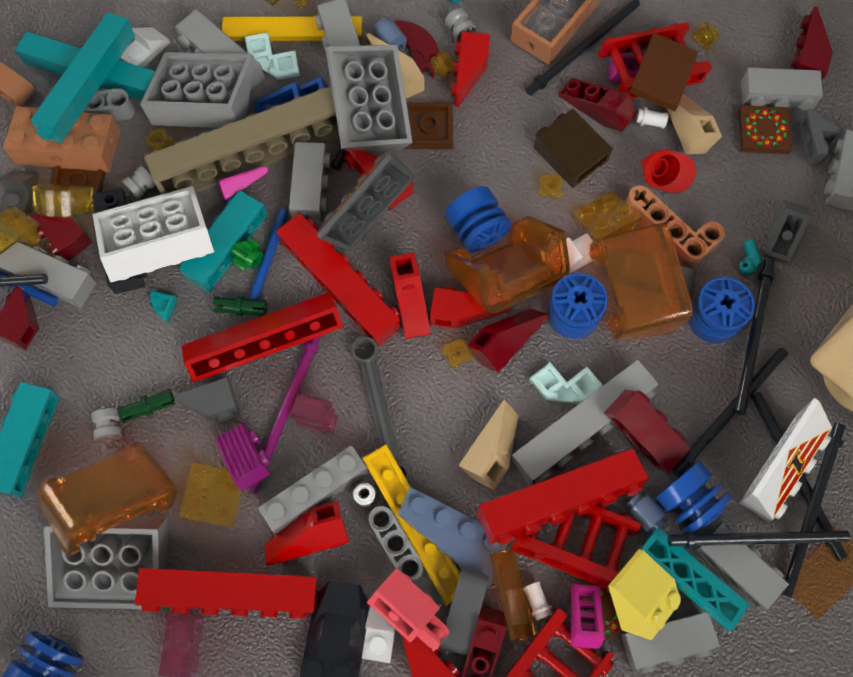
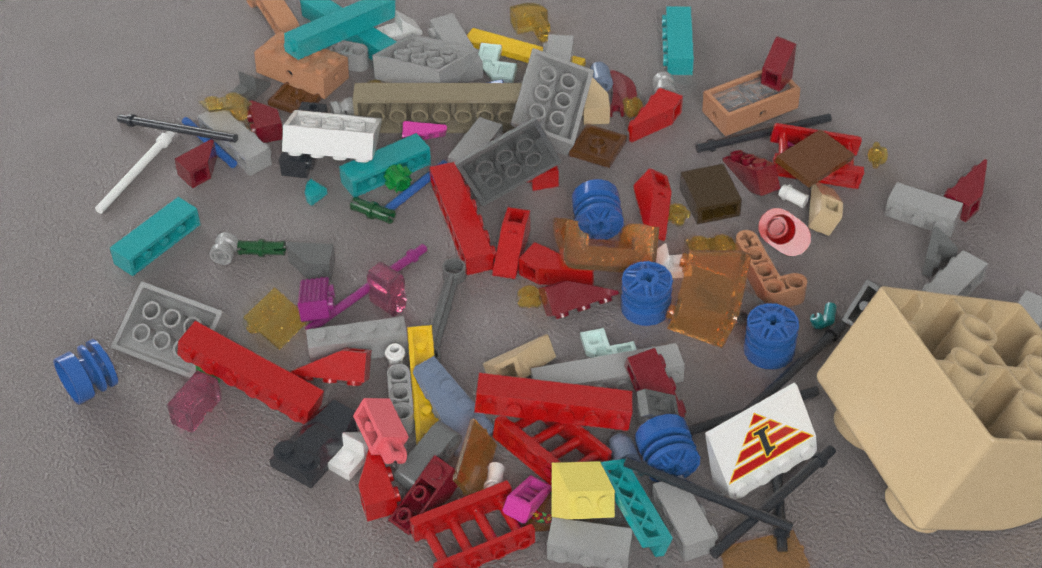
camera: 25 degrees right, 25 degrees down
(61, 201) = (278, 98): clear yellow brick -> none
(104, 496) = (197, 275): clear orange windscreen -> none
(261, 337) = (377, 230): red brick -> none
(524, 180) = (654, 199): none -> red slope
(666, 461) = (654, 403): none -> dark grey slope
(764, 129) = (893, 235): tile -> none

